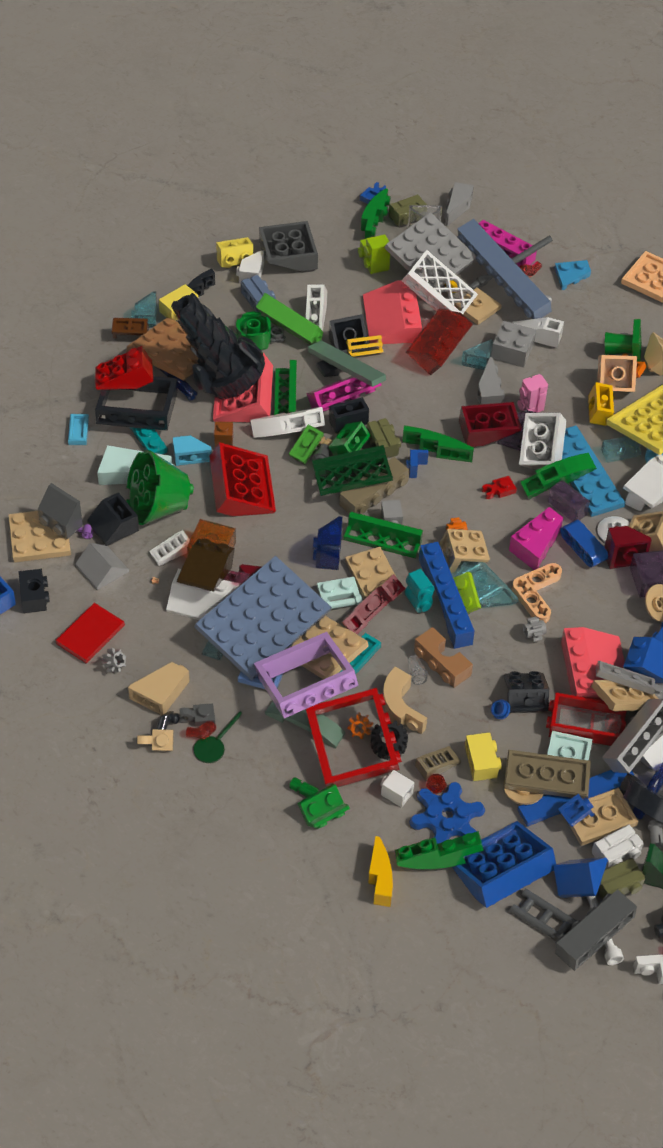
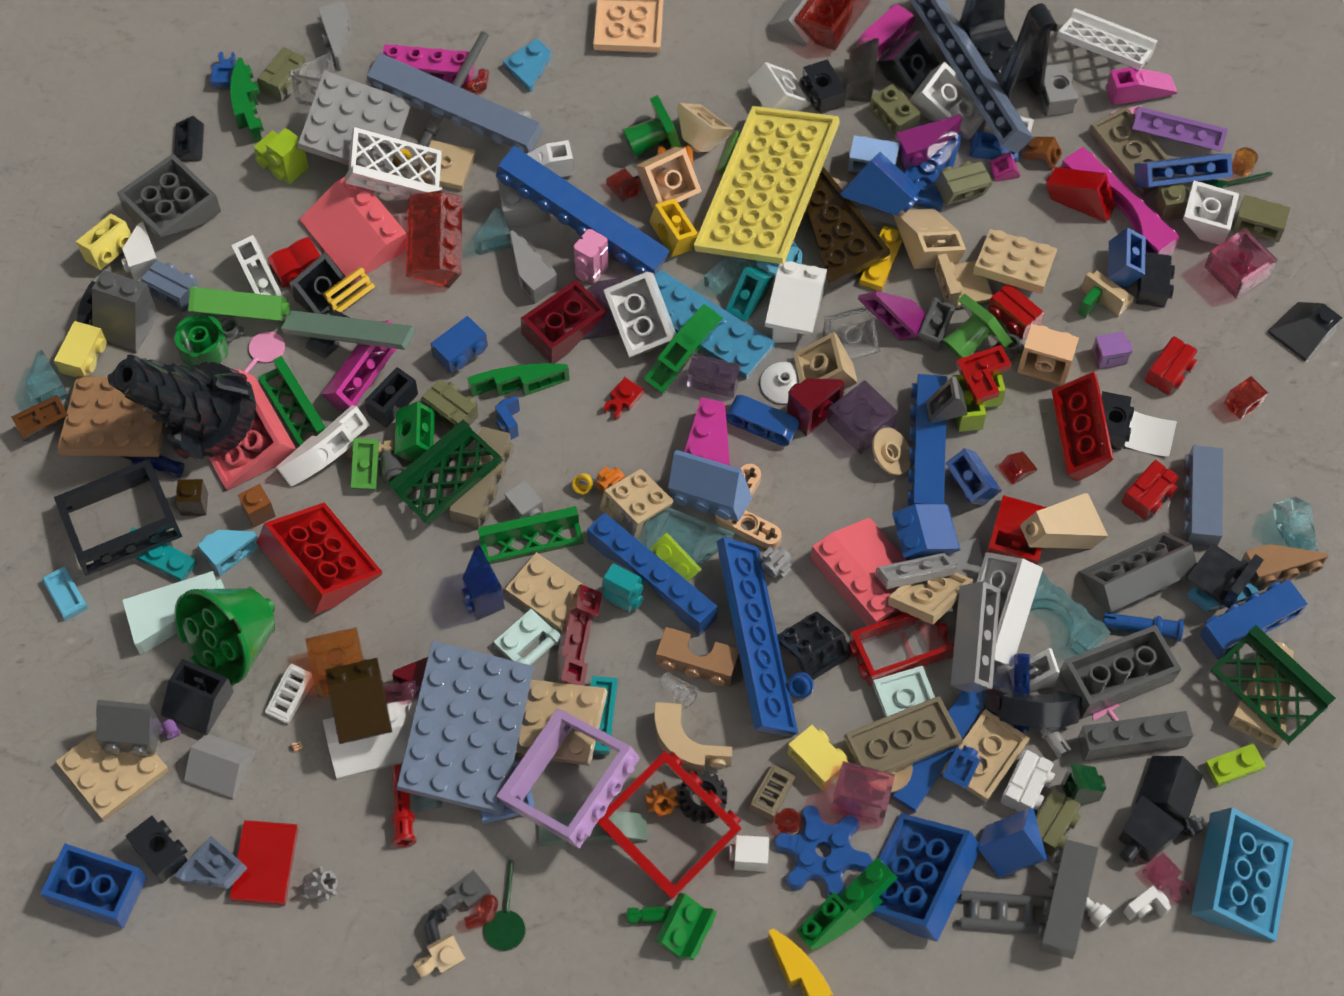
camera: 30 degrees left, 10 degrees up
(57, 616) = (211, 866): none -> sand blue wing
(125, 371) = (80, 487): red slope -> none
(160, 688) = (400, 887): tan slope -> none
(188, 412) = (191, 497): none -> dark brown brick
(190, 651) = (403, 817): none -> red pin
(219, 289) = (122, 310): none -> dark grey slope
(291, 353) = (265, 348): none -> bright pink piece
(325, 222) = (189, 139): none -> black slope
(339, 310) = (292, 260): none -> red brick
(412, 406) = (459, 345): none -> blue brick
(434, 525) = (582, 488): none -> yellow hinge
(489, 664) = (757, 638): none -> blue plate
(495, 790) = (862, 792): none -> clear pink slope
(518, 559) = (708, 486): none -> medium blue slope
(541, 361) = (580, 211): none -> blue brick
(587, 367) = (624, 184): none -> clear red bracket
(626, 464) = (749, 292): none -> teal slope

